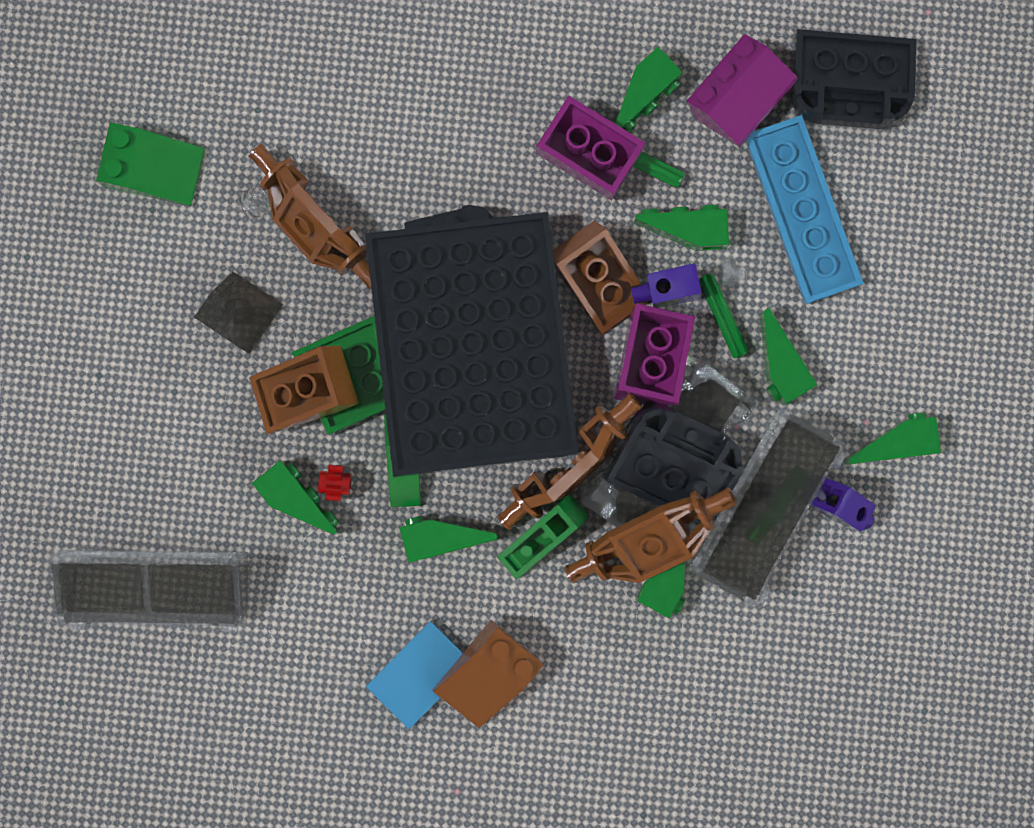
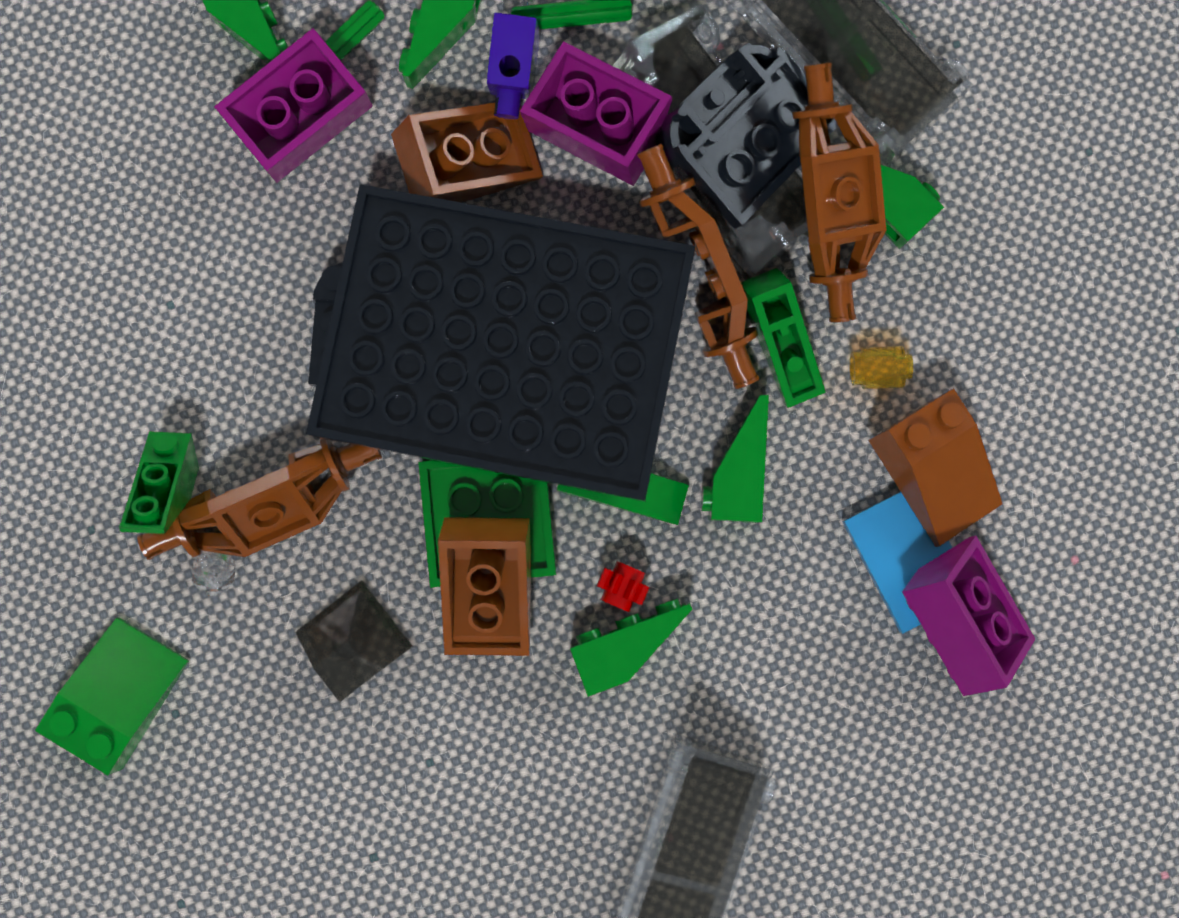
camera: 75 degrees left, 0 degrees up
(300, 148) = (161, 483): none -> green slope
(390, 728) = (970, 618): none -> magenta slope
(544, 611) = (880, 367): none -> clear yellow brick

